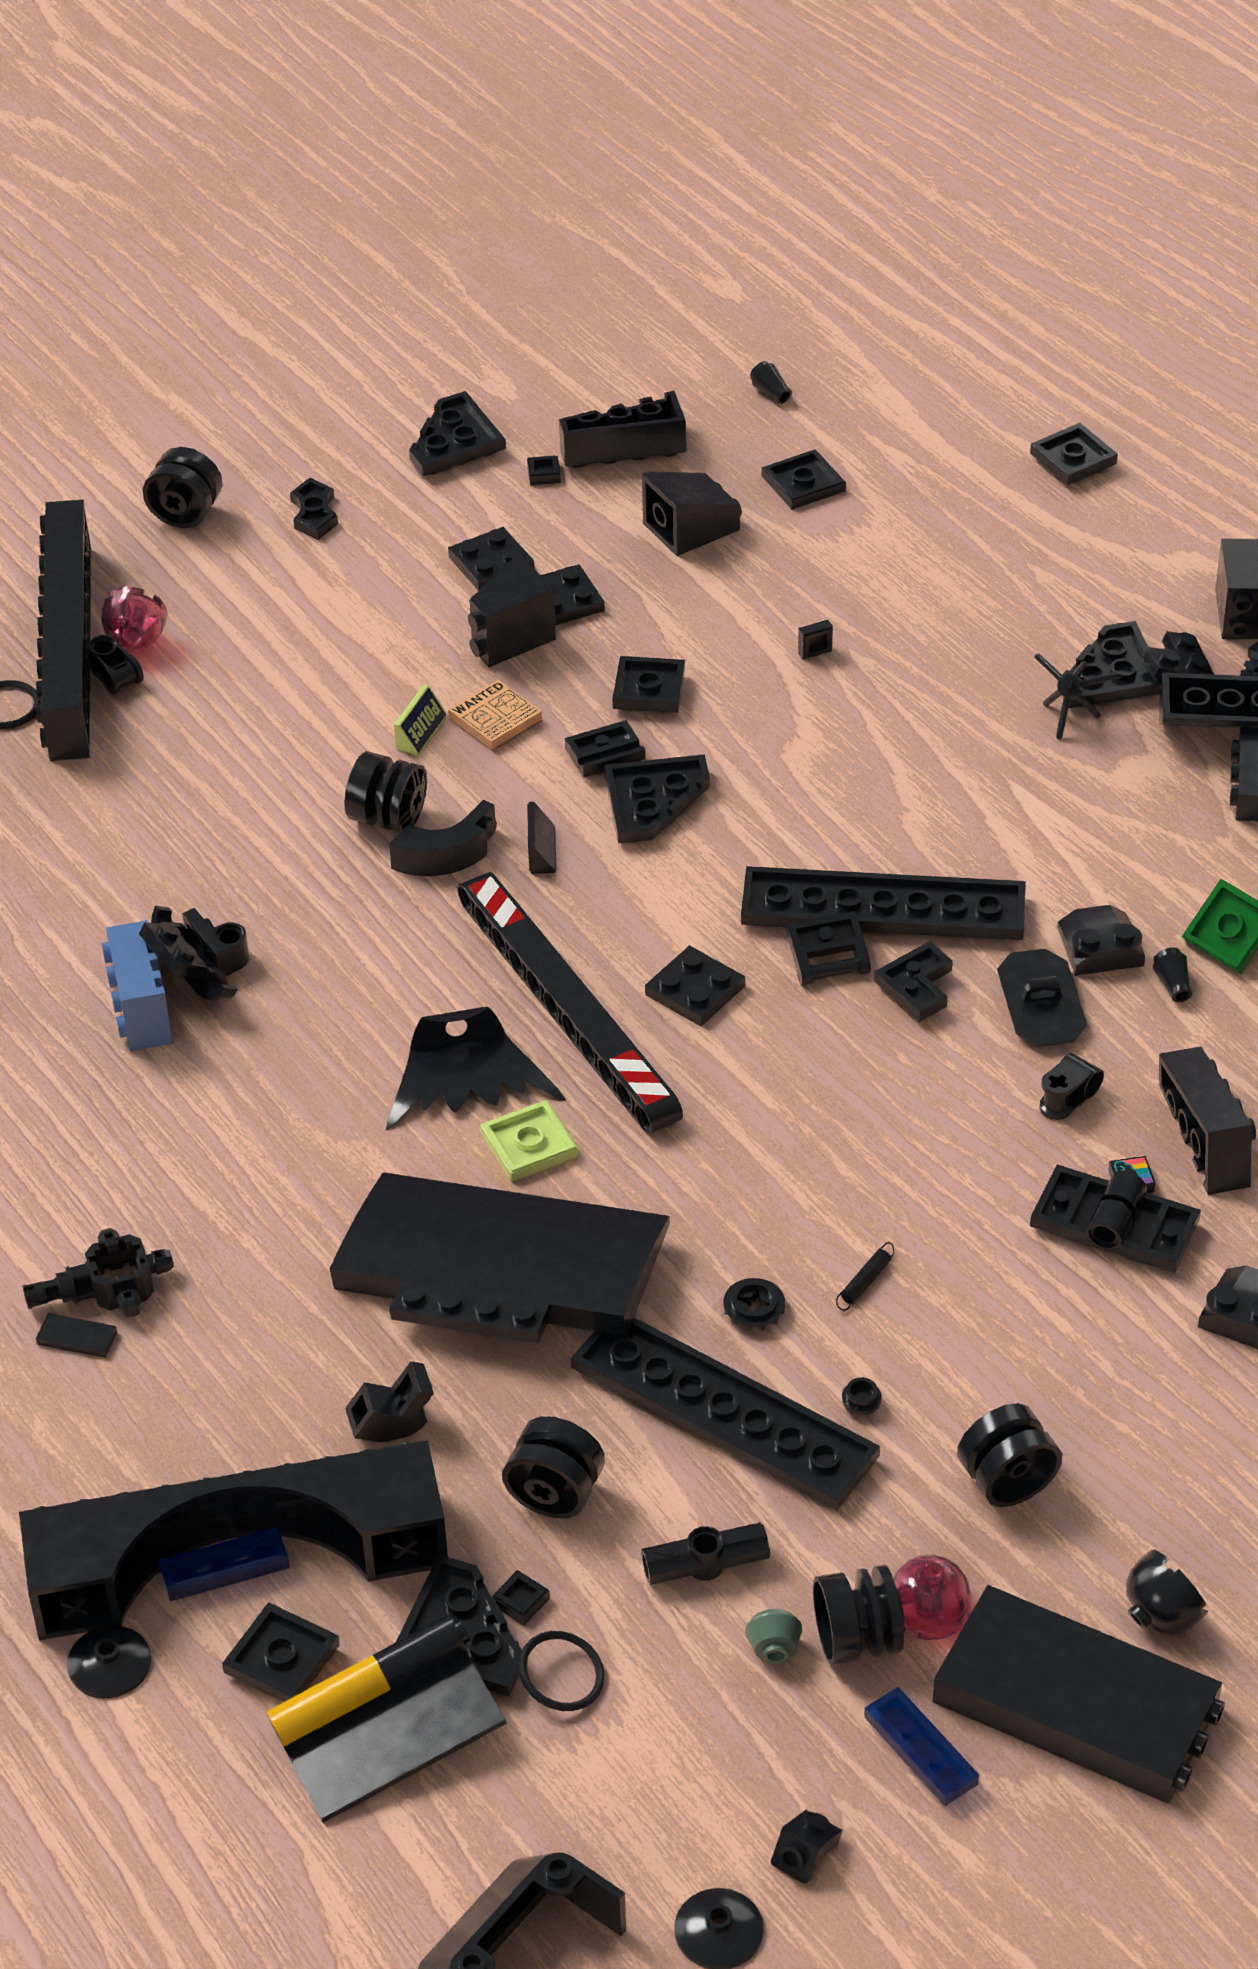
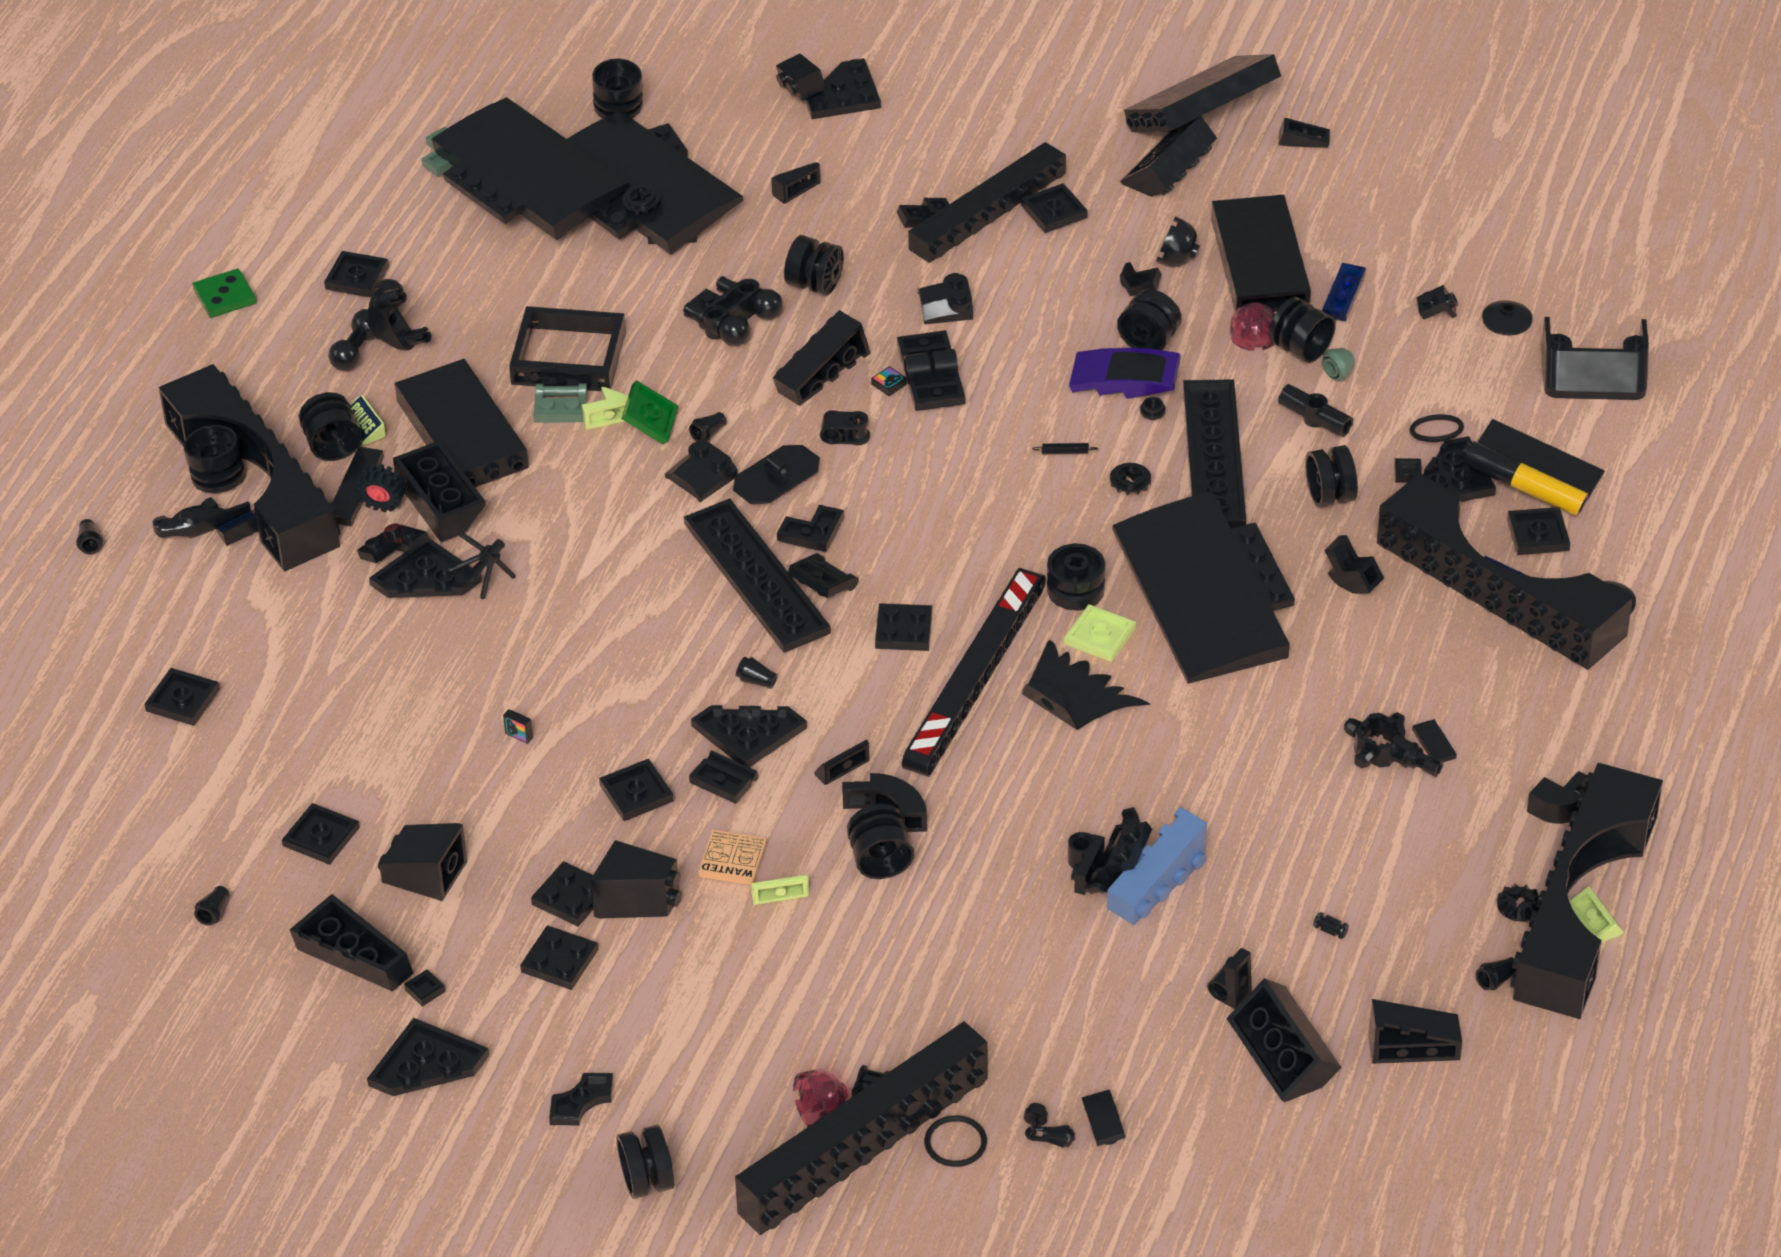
camera: 125 degrees left, 0 degrees up
(621, 1146) = (1075, 576): none -> black wheel
(731, 833) = (754, 672): none -> black cone
(946, 1397) = (1125, 370): none -> dark purple slope
(1127, 1522) = (1137, 281): none -> black bracket

